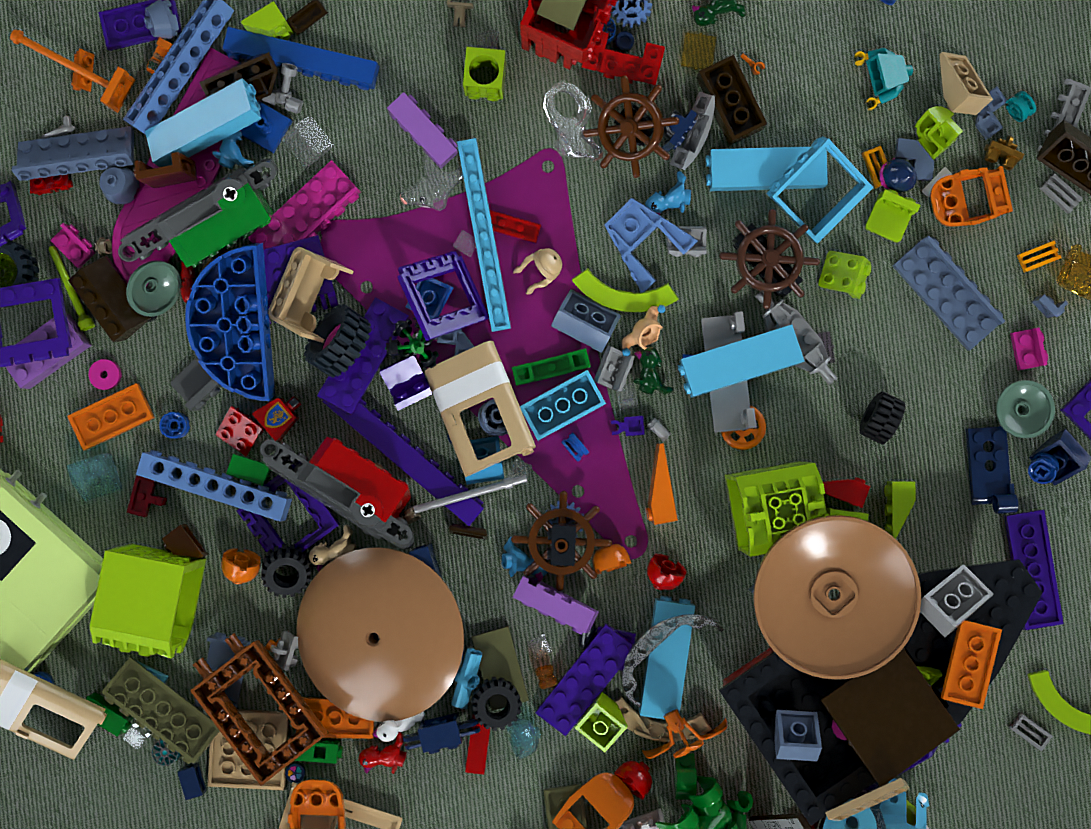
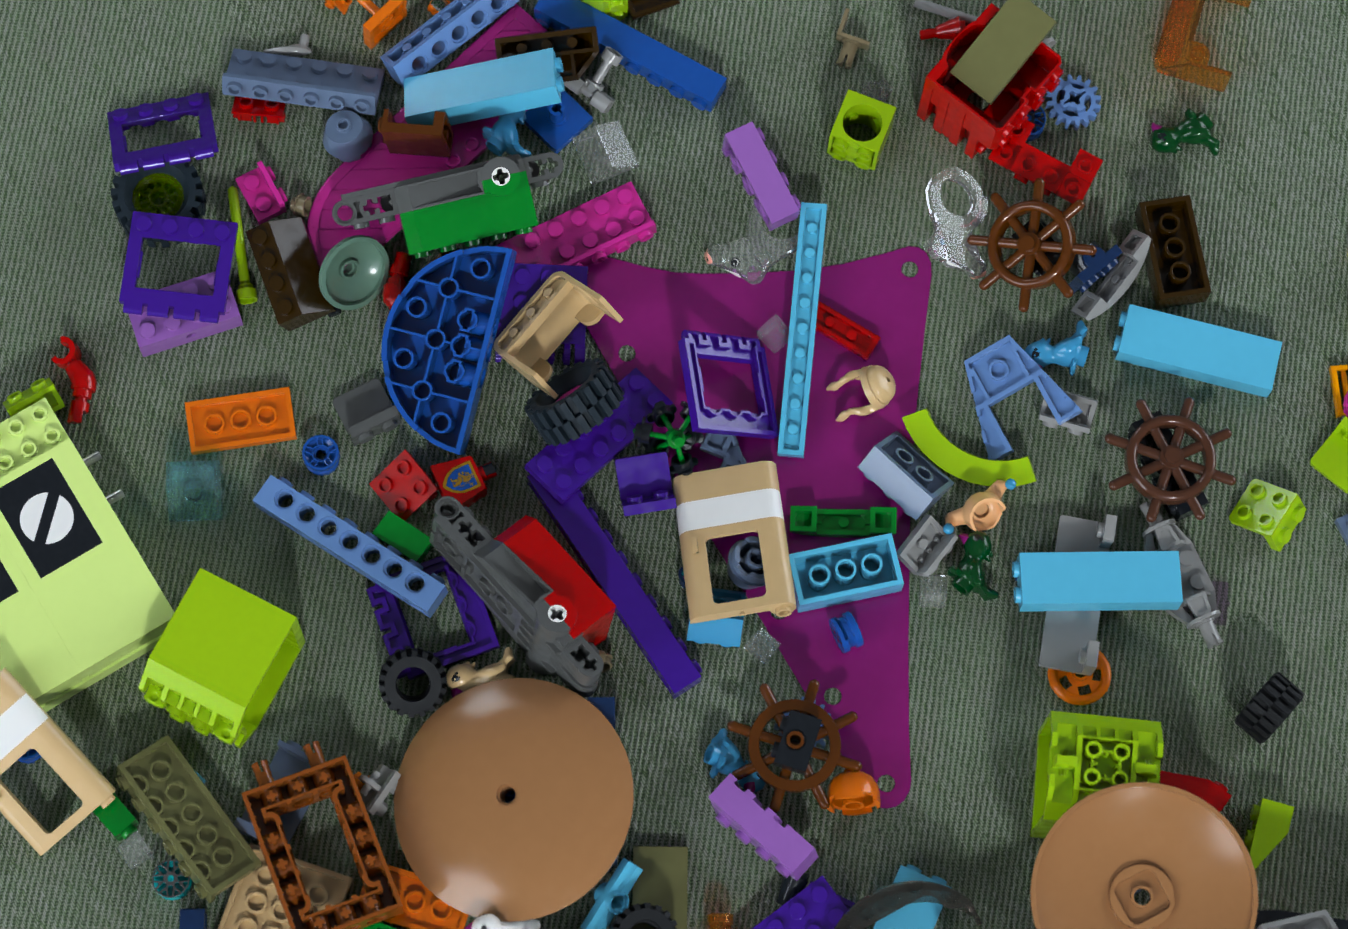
camera: 10 degrees right, 15 degrees down
(96, 374) = (251, 377): dark pink piece -> none
(143, 496) = (250, 534): dark red plate -> none
(184, 543) = (285, 599): reddish brown slope -> none
(240, 566) = (350, 661): orange cylinder -> none
(434, 296) = (717, 382): blue slope -> none
(468, 531) = (670, 704): dark brown tile -> none
(507, 483) = (741, 652): light grey bar -> none
(539, 646) = (722, 888): clear slope -> none
(624, 41) = (1053, 143): dark blue tile -> none
(631, 425) = (930, 628): dark purple plate -> none
(658, 429) = (964, 643): light grey pin -> none
(661, 497) = (942, 739): orange slope -> none
(665, 573) = (921, 834): red cylinder -> none
(698, 51) = (1145, 180): clear yellow piece -> none
(753, 65) = (1213, 217): orange hand -> none
(847, 203) = (1284, 425): medium azure window -> none

